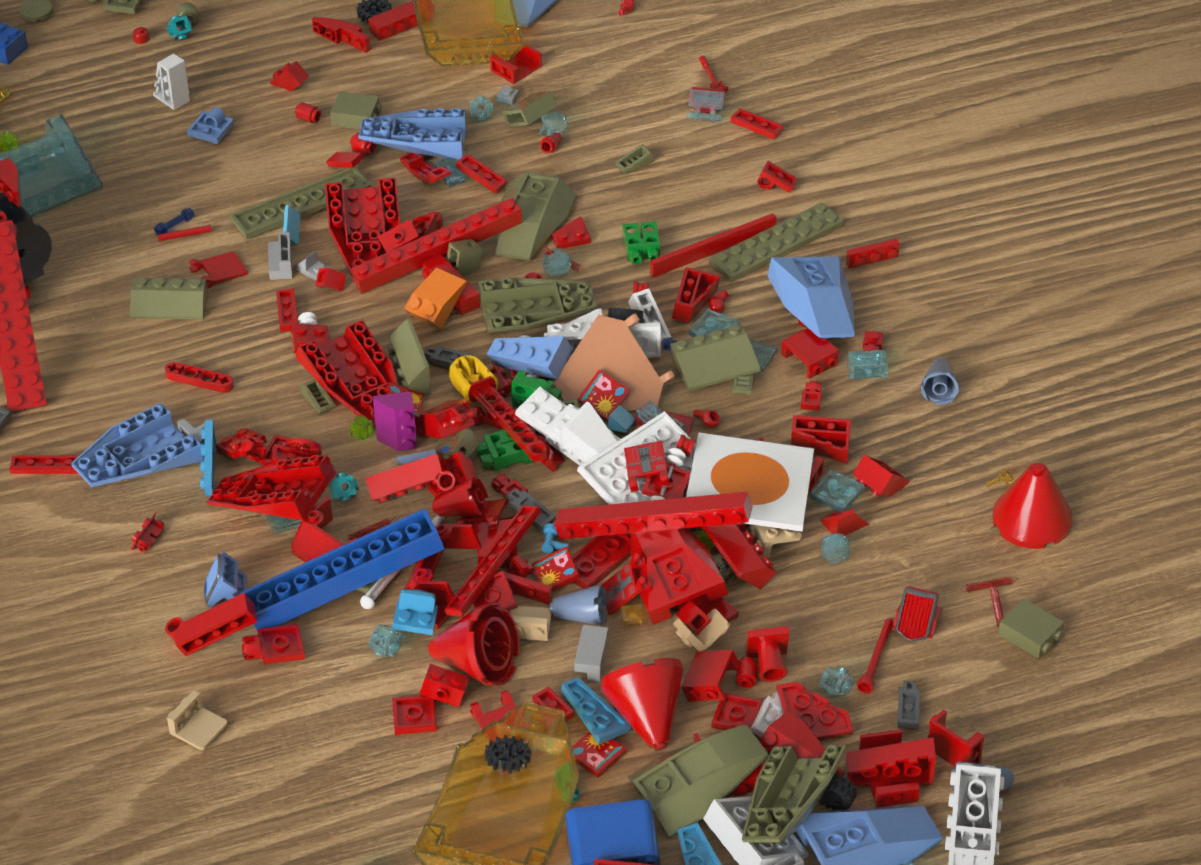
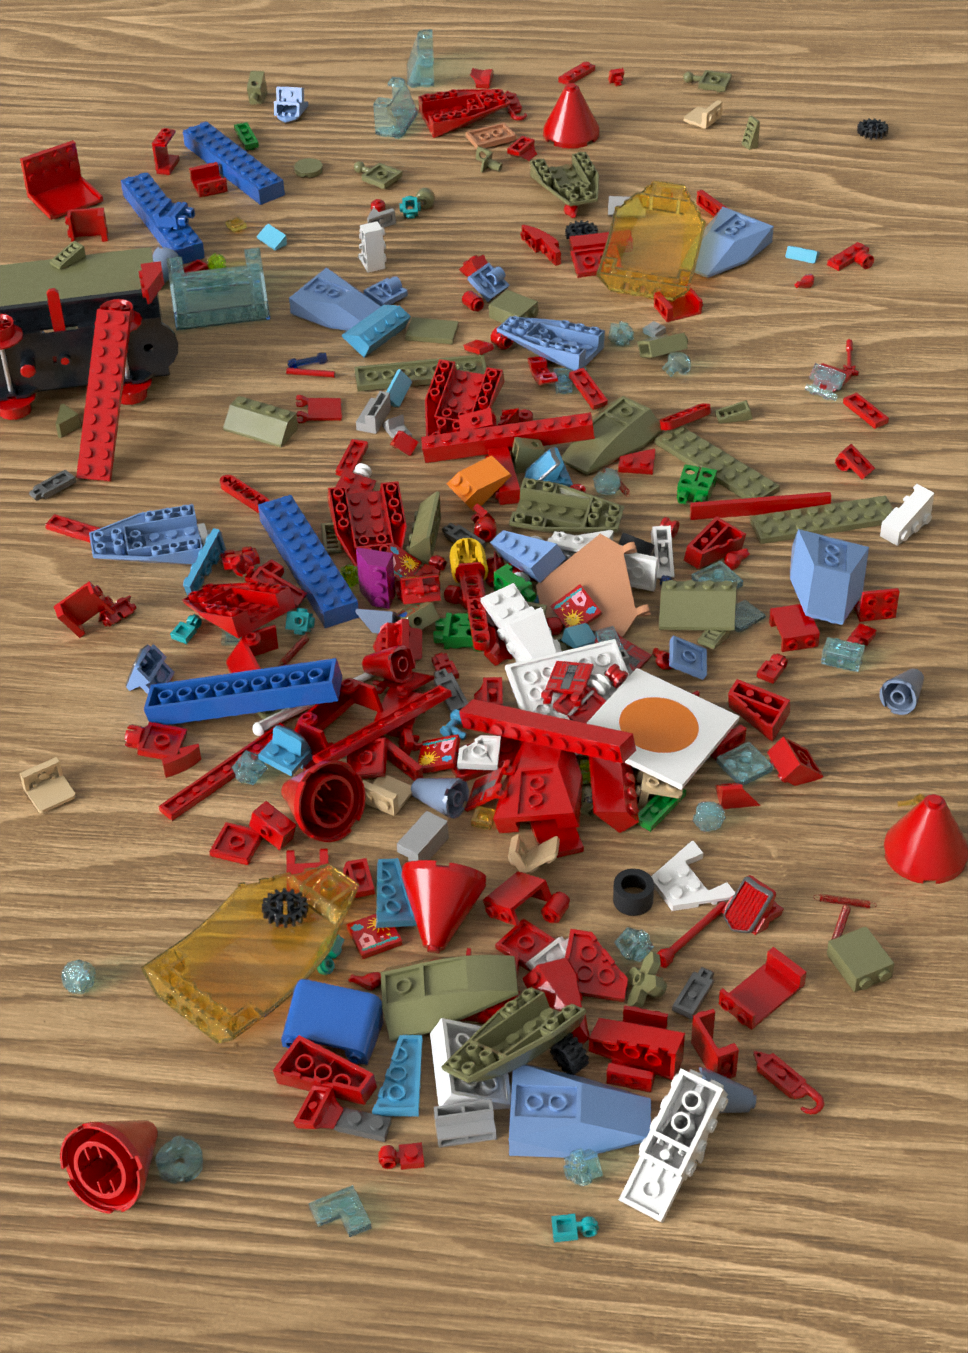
camera: 25 degrees right, 0 degrees up
(48, 97) = (272, 237): none -> medium azure slope
(118, 536) = (82, 606): none -> red panel
(155, 49) = (384, 218): none -> light grey slope
(171, 154) = (331, 302): none -> medium blue wedge
(212, 624) = (111, 705): red hinge -> none
(228, 167) = (377, 329): none -> dark azure slope
(231, 531) = (185, 631): none -> teal plate
(283, 155) = (432, 330): none -> olive tile
(304, 418) = (308, 561): none -> blue brick
(305, 445) = (288, 576): red wheel -> none
(309, 660) = (179, 763): none -> red slope
(314, 87) = (489, 281): none -> medium blue plate
(355, 511) = (296, 649): none -> red piece
(357, 654) = (210, 781): none -> red tile
(402, 39) = (587, 261): none -> red tile
(410, 477) = (356, 630): hinge -> none
(437, 396) = (436, 564): none -> red plate
(454, 329) = (480, 512): none -> red tile
(466, 342) = (485, 528): none -> red head
(494, 264) = (549, 468): none -> dark azure piece
(550, 143) = (665, 379): red cone -> none
(567, 496) = (490, 691): none -> red slope
(592, 176) = (685, 416): none -> red beam
(597, 557) = (481, 754): none -> white plate
(618, 794) = (368, 981): none -> red animal
(627, 210) = (730, 471): none -> olive plate
(693, 617) = (532, 838): red brick -> none
(732, 409) = (688, 657): none -> medium blue plate
(768, 647) = (585, 889): red plant -> none
(784, 557) = (657, 810): none -> green plate
(807, 646) = (630, 903): none -> black piece
(844, 618) = (681, 886): none -> white wing
(856, 217) = (909, 517): none -> white wedge
(865, 708) = (645, 981): none -> olive plant
(872, 253) = (908, 554): red plate -> none
(874, 309) = (877, 605): none -> red bracket
(965, 681) = (764, 990): none -> red panel
(1026, 750) = (787, 1080): none -> red plate

